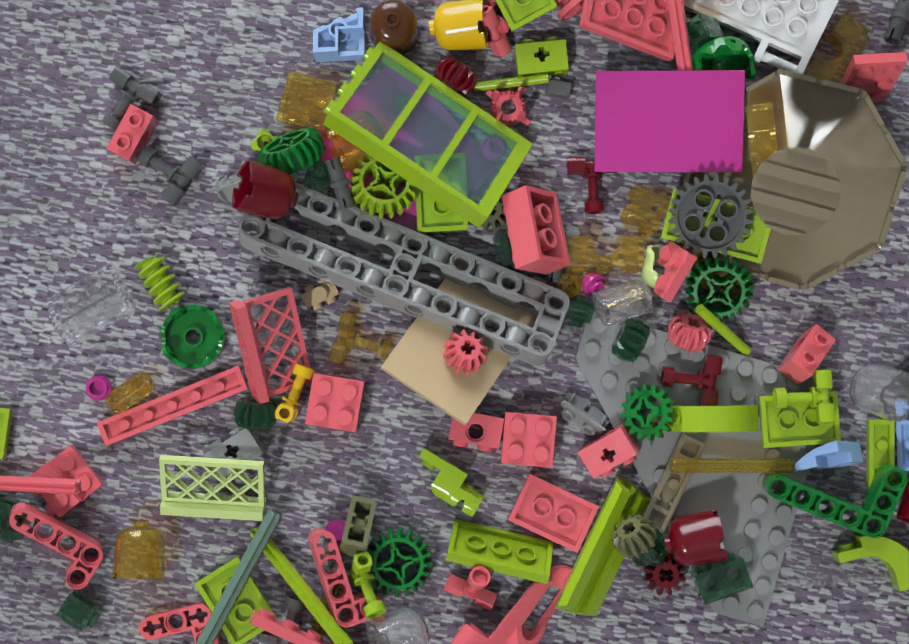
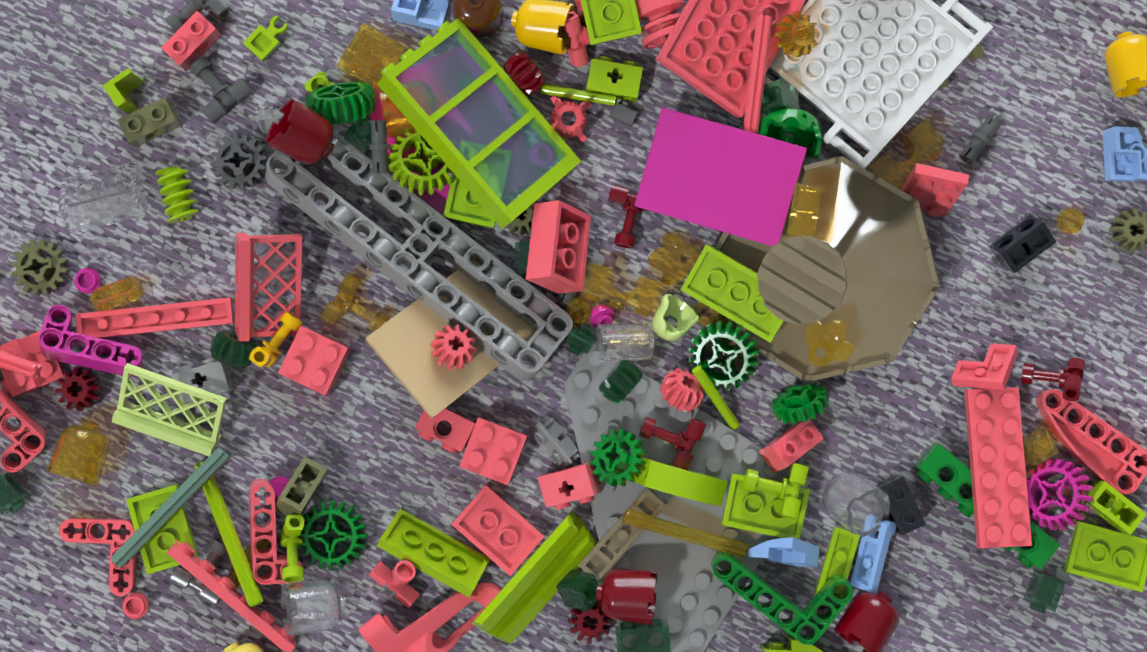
camera: 15 degrees right, 0 degrees up
(44, 379) = (43, 277): none -> olive gear
(79, 194) = (120, 87): none -> lime panel
(115, 222) = (150, 122): none -> olive brick
(121, 447) = (93, 346): none -> dark pink beam
(125, 500) = (82, 398): none -> dark red gear
(175, 332) = (176, 252): green plate -> none
(200, 116) = (263, 41): none -> lime plate
(205, 225) = (249, 160): none -> dark grey gear
(324, 292) = (326, 250): tan piece -> none
(449, 485) = (404, 472): lime plate -> none
(634, 536) = (568, 575): olive gear -> none
(677, 264) = (687, 319): coral plate -> none
(732, 225) = (715, 266): dark grey gear -> none
(804, 312) = (800, 403): none -> green gear
(817, 244) = (829, 338): none -> clear yellow plate

